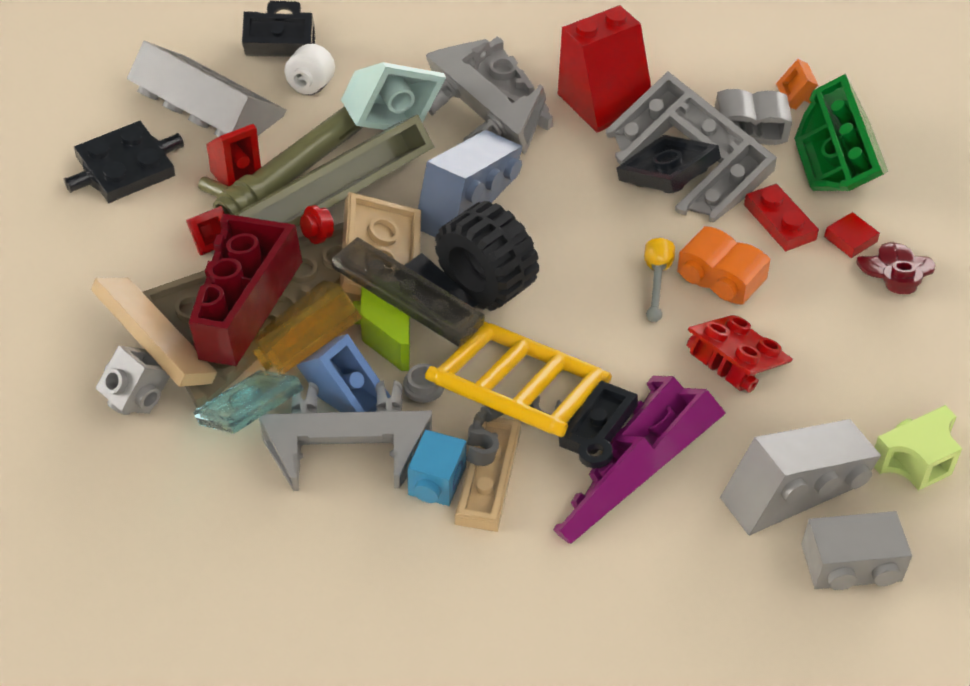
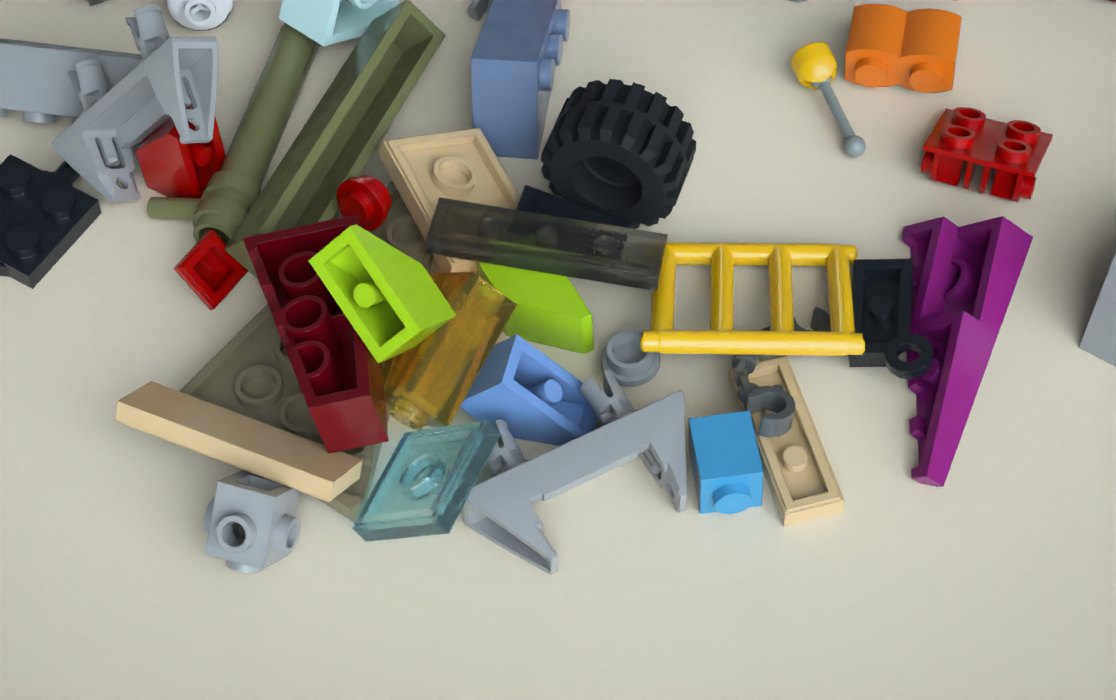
camera: 20 degrees left, 5 degrees up
(217, 114) = (155, 90): none -> light grey hose
(271, 273) = (381, 292): none -> lime slope

